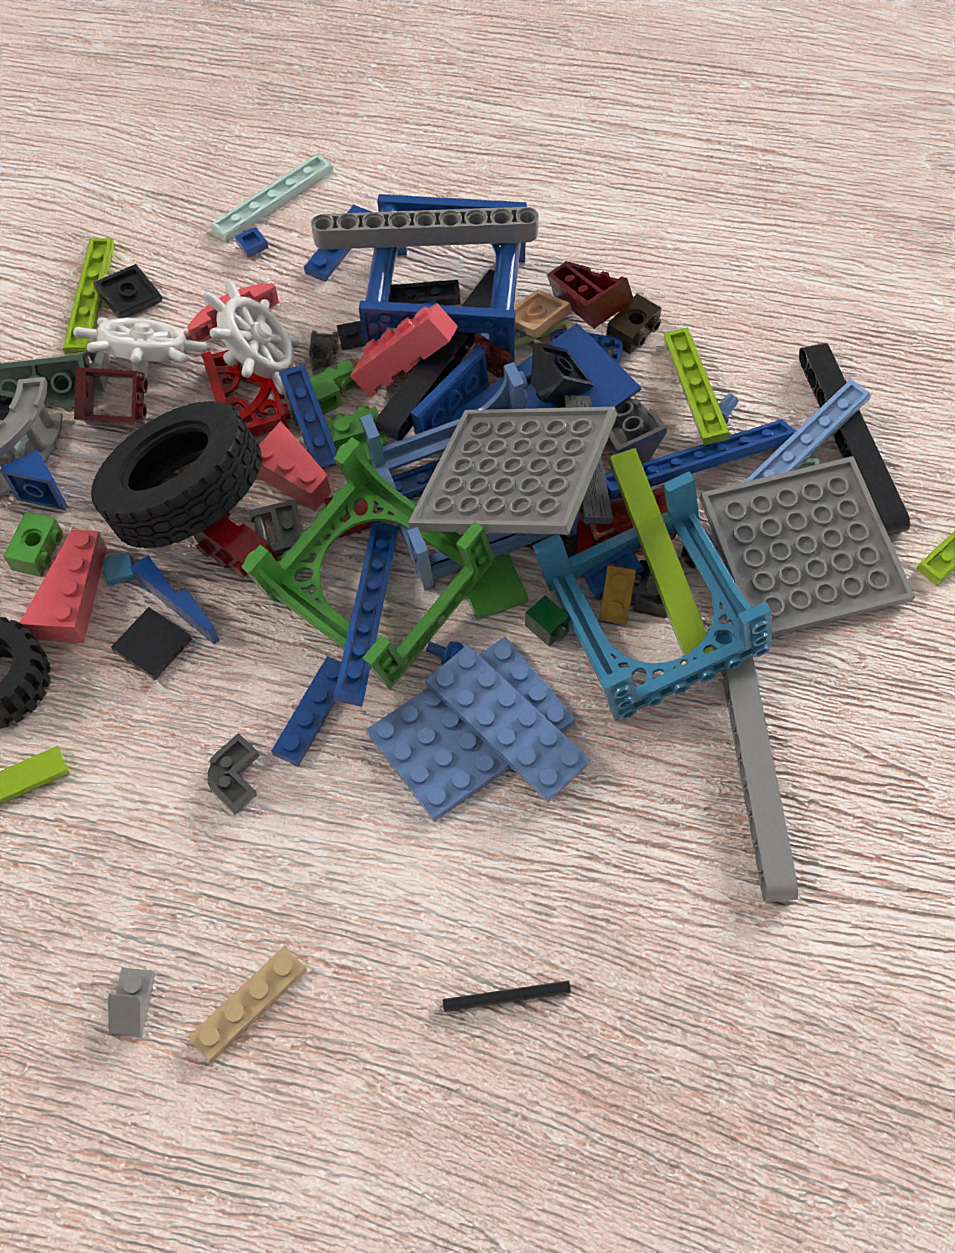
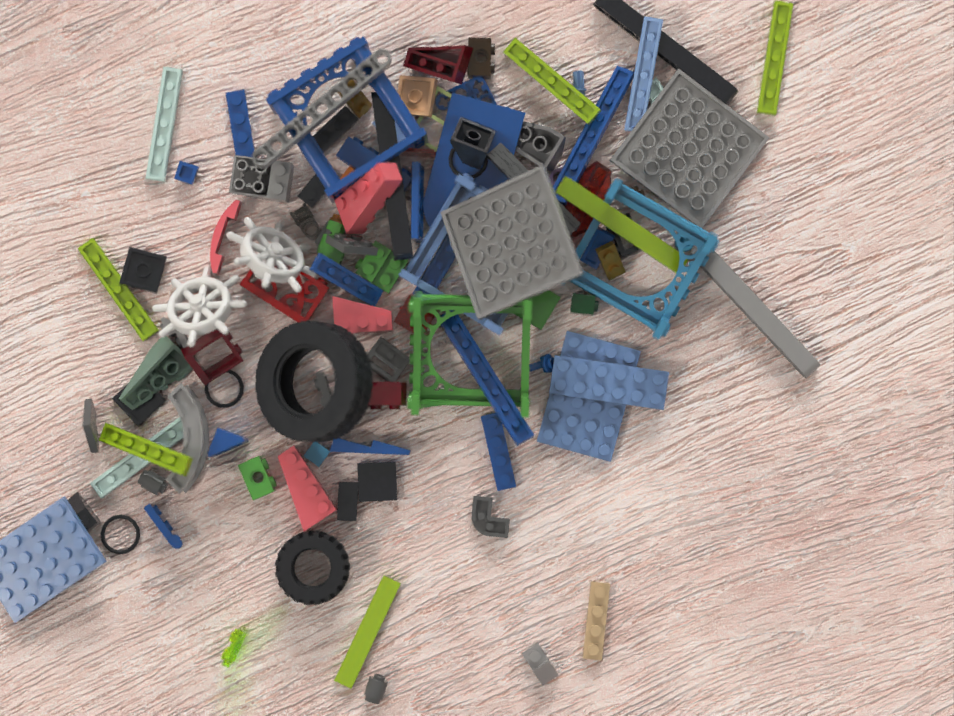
camera: 40 degrees left, 25 degrees up
(86, 427) = (231, 403): none -> black piece
(99, 639) = (347, 501): none -> black tile
(317, 287) = (266, 184): none -> light grey slope
(353, 391) = (351, 245): none -> dark grey plate
(470, 268) = (359, 103): none -> pearl gold plate
(506, 996) = (715, 521): black bar -> none

